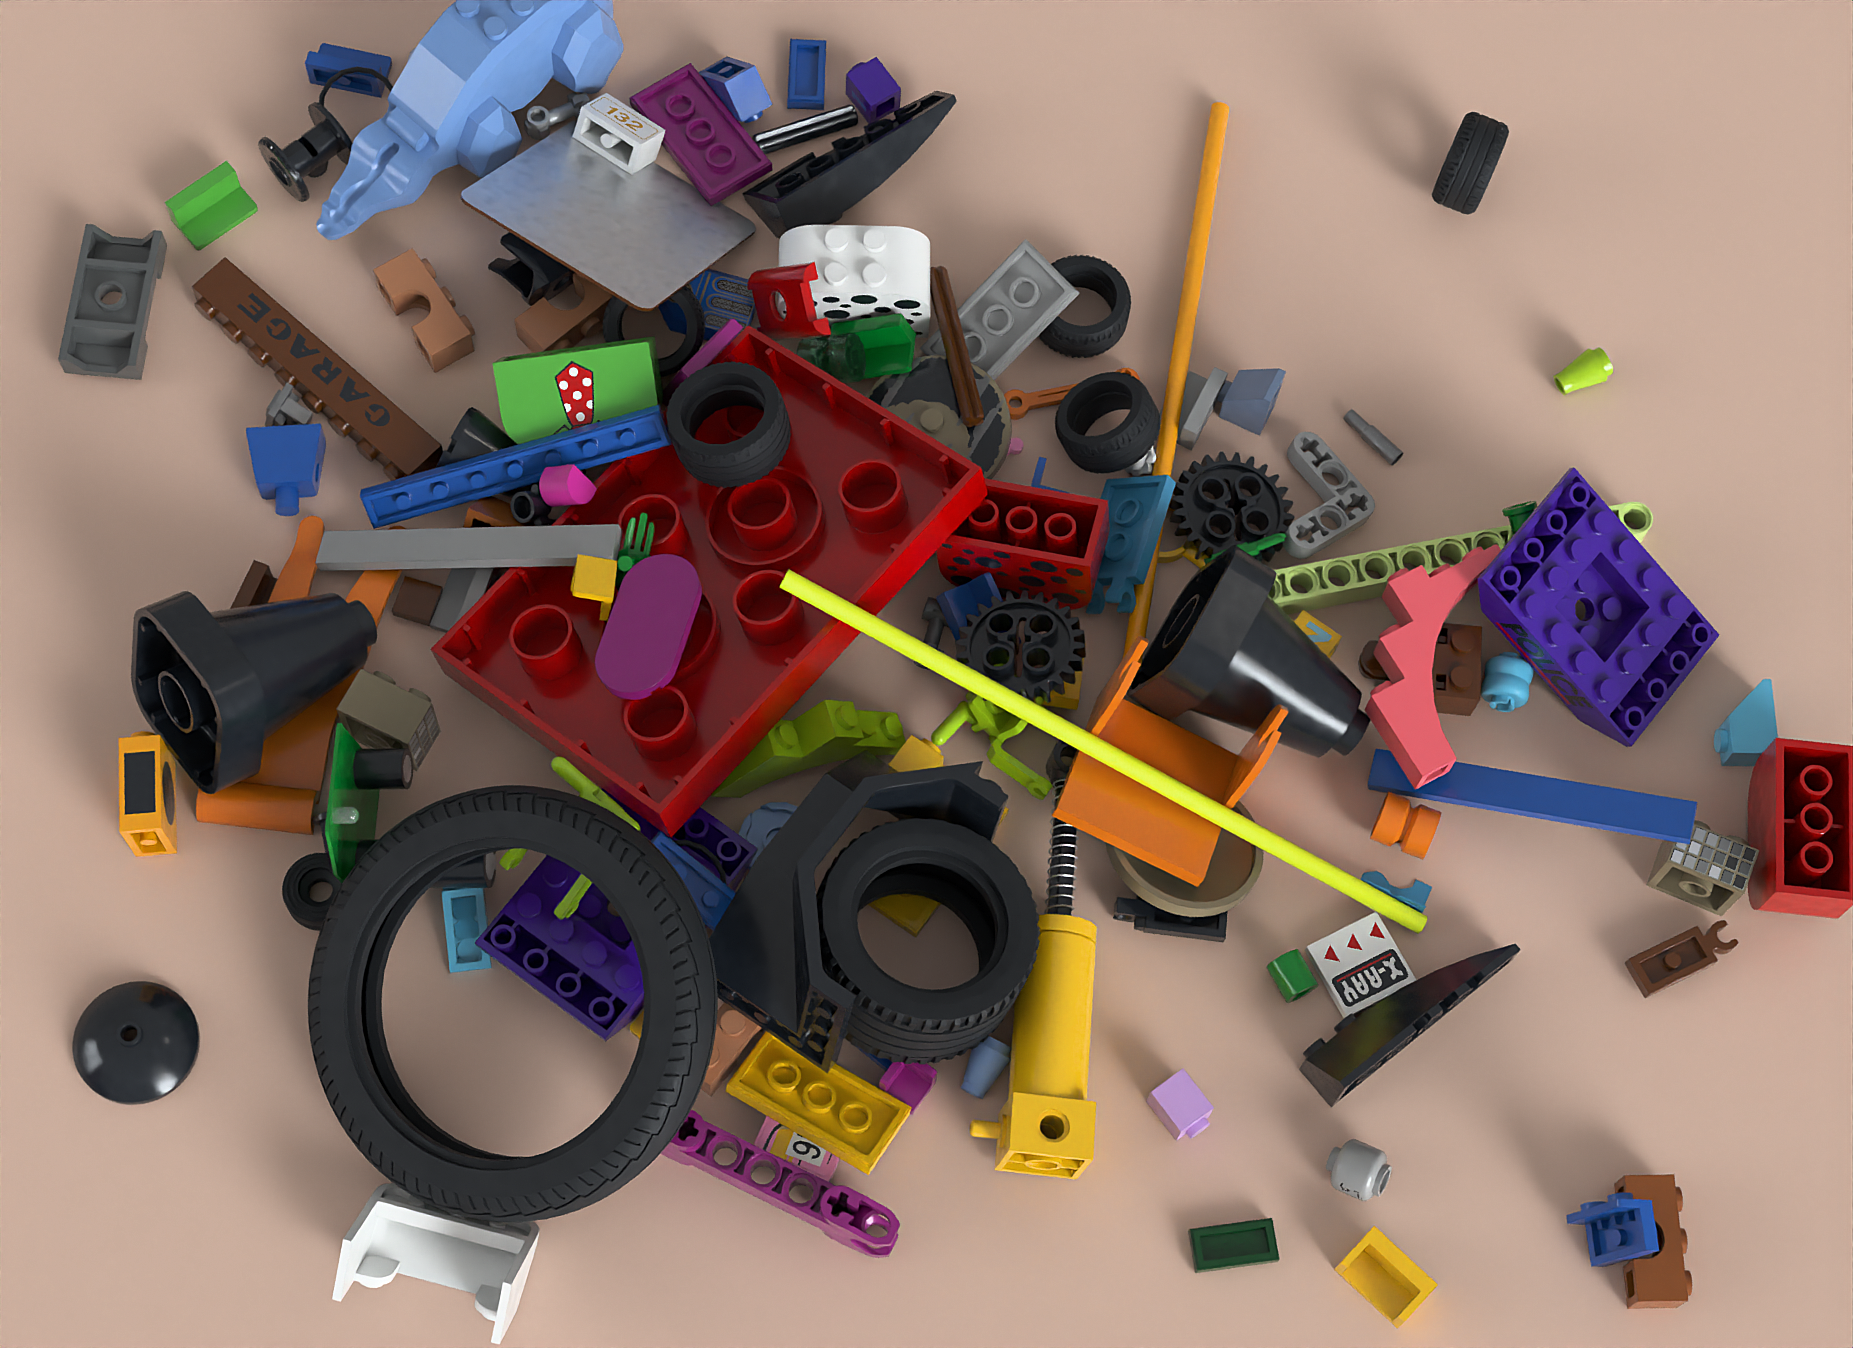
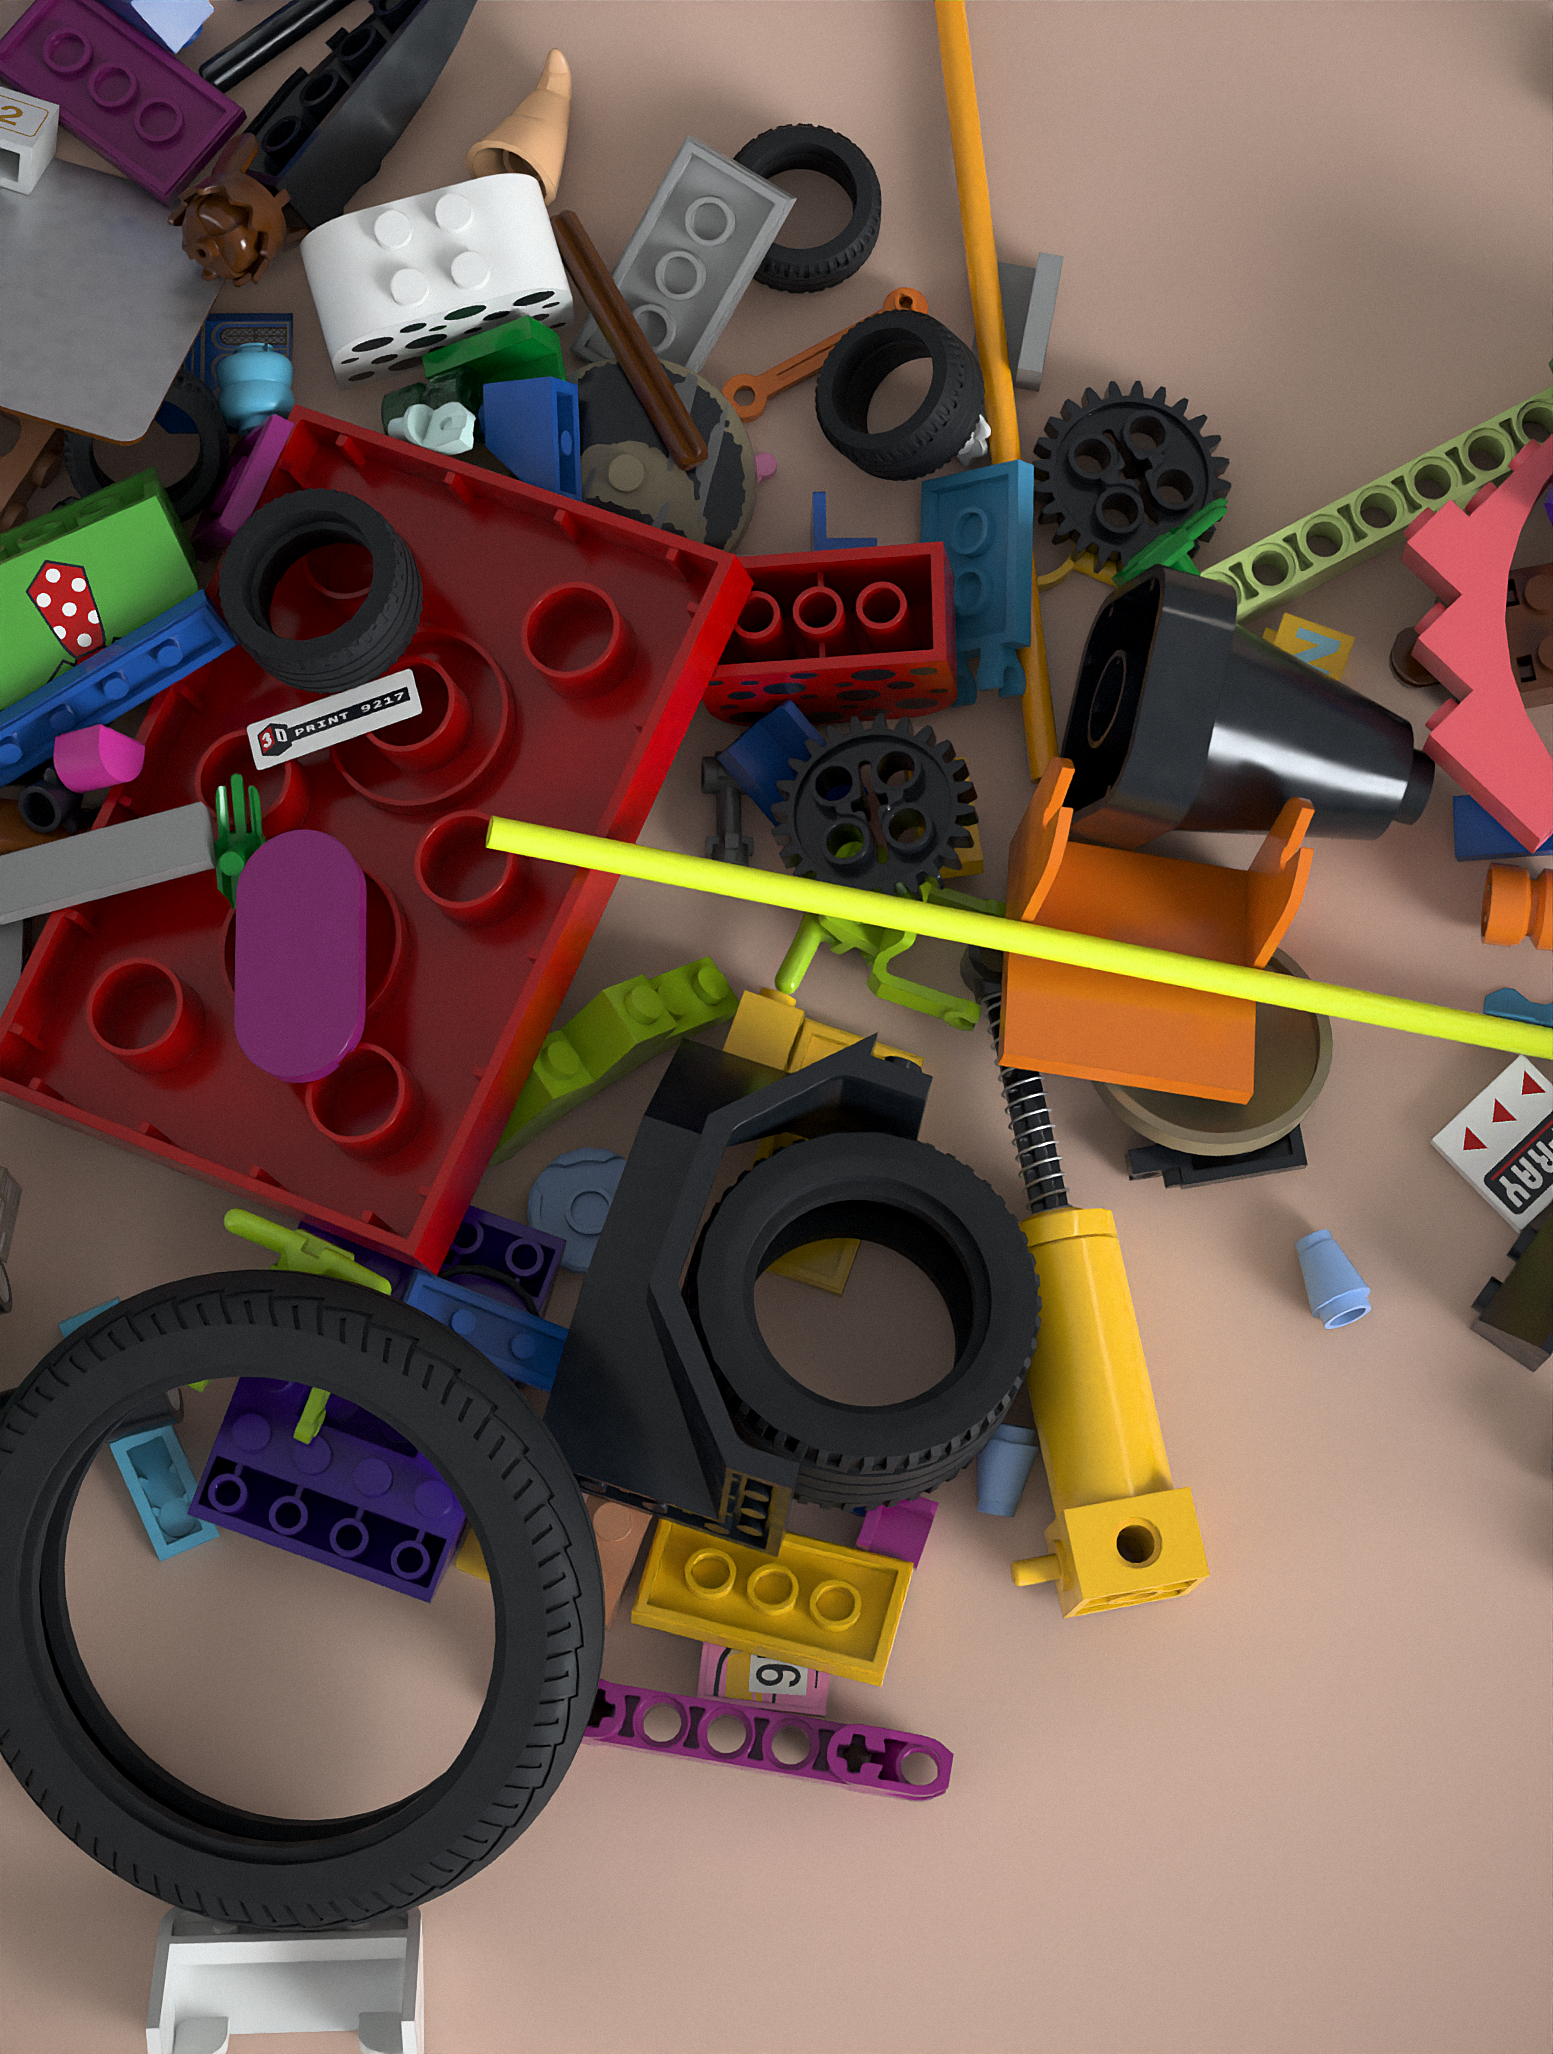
camera: 10 degrees left, 10 degrees up
(595, 580) = (193, 905): yellow panel -> none
(713, 501) = (334, 719): none -> white sticker
(727, 304) = (254, 386): none -> medium azure piece
(745, 215) = (233, 220): none -> reddish brown hat
(795, 289) = (351, 326): red piece -> none
(829, 360) = (439, 430): none -> light aqua piece
(885, 376) = (535, 431): none -> blue slope
(938, 220) = (533, 135): none -> light nougat hat
(1181, 1106) = (1312, 1442): lavender brick -> none
(1220, 1013) = (1331, 1281): none -> light blue cone
(1233, 1245) = (1446, 1625): dark green tile -> none
(1251, 397) = (1108, 284): sand blue slope -> none
(1292, 975) = (1422, 1191): green gear -> none
(1335, 497) = (1287, 408): light grey beam -> none
(1374, 437) = (1316, 288): flat silver pin -> none

